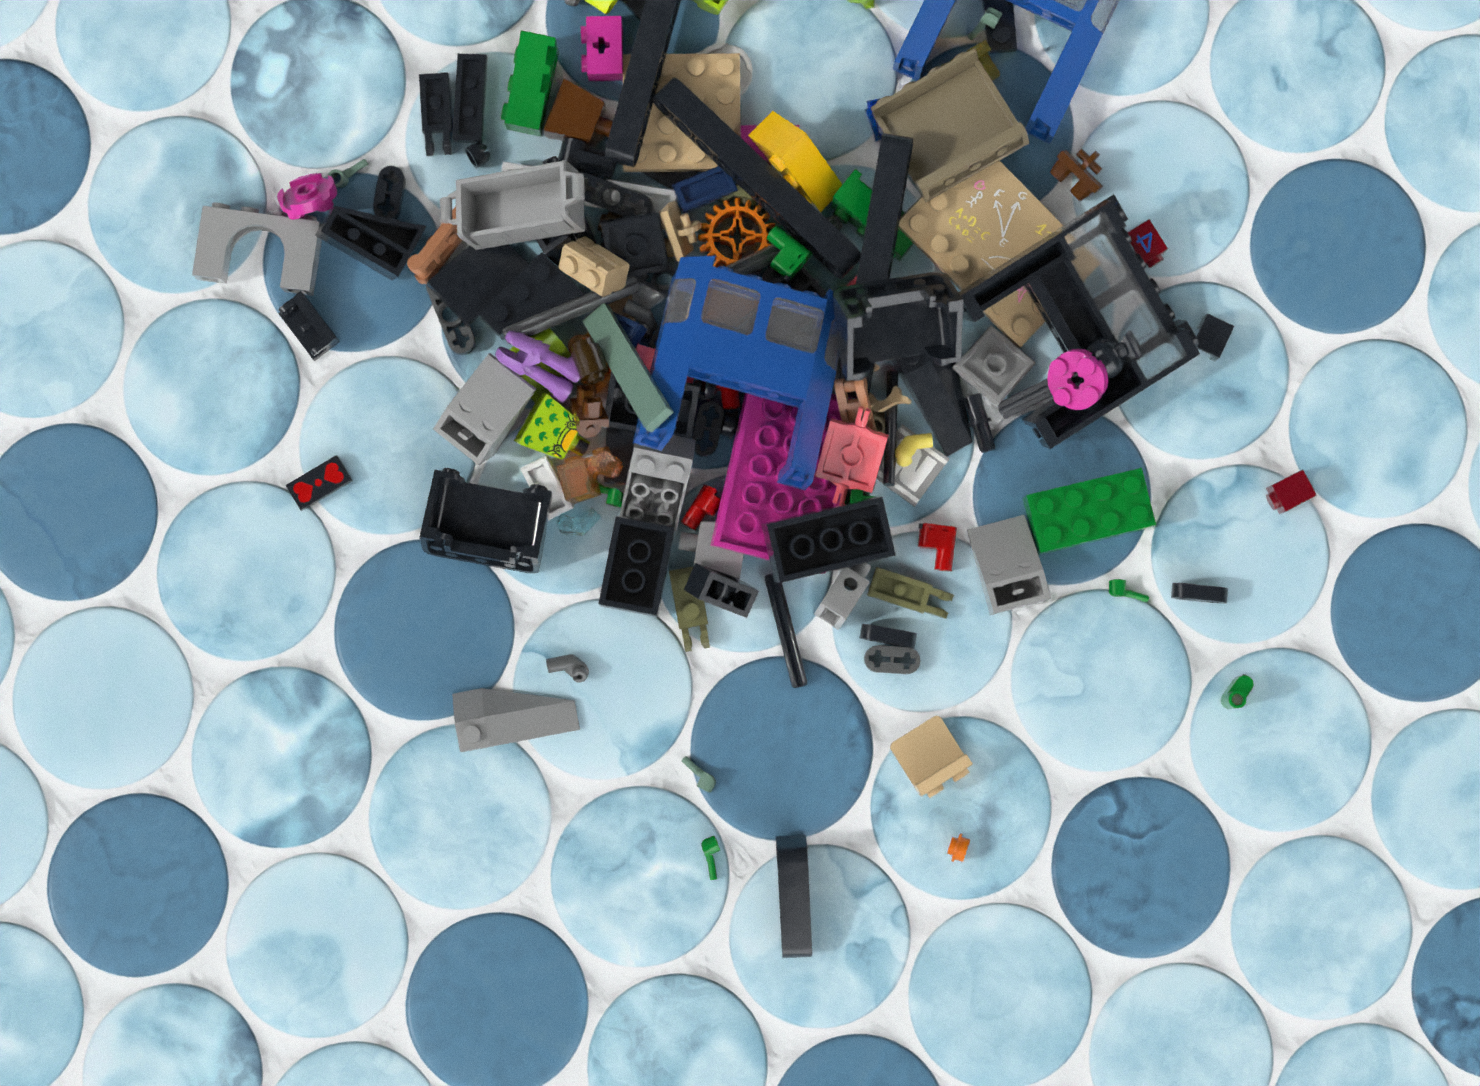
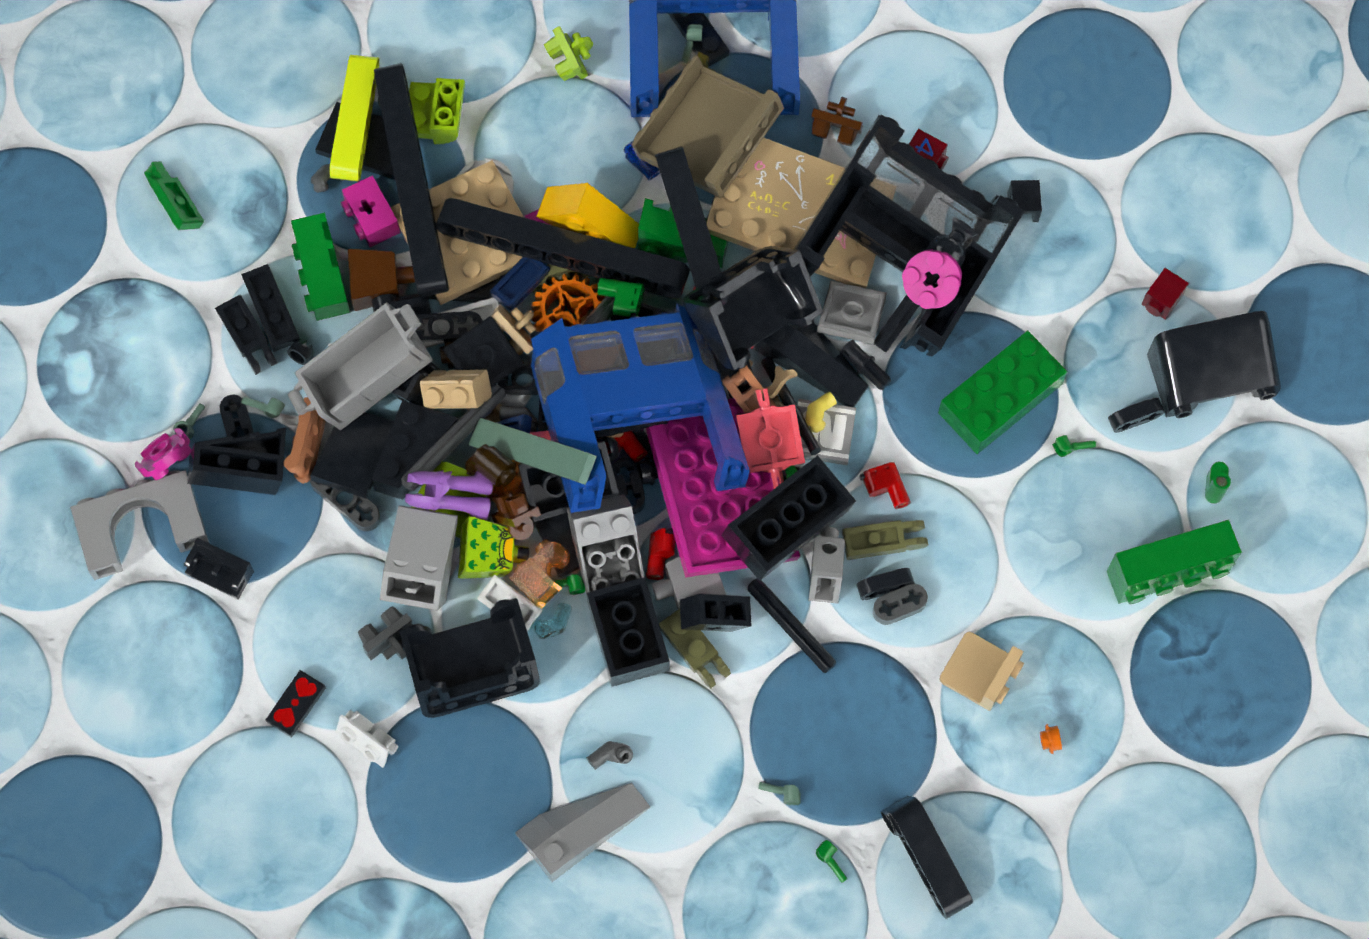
camera: 25 degrees left, 15 degrees down
(367, 555) = (355, 729): none -> white hinge
(412, 463) = (388, 640): none -> dark grey hips
(426, 197) = (272, 409): none -> sand green hand
(1008, 565) = (959, 472): light grey slope -> none
(1153, 748) = (1173, 562): none -> green brick
(1297, 584) = (1214, 362): none -> black windscreen

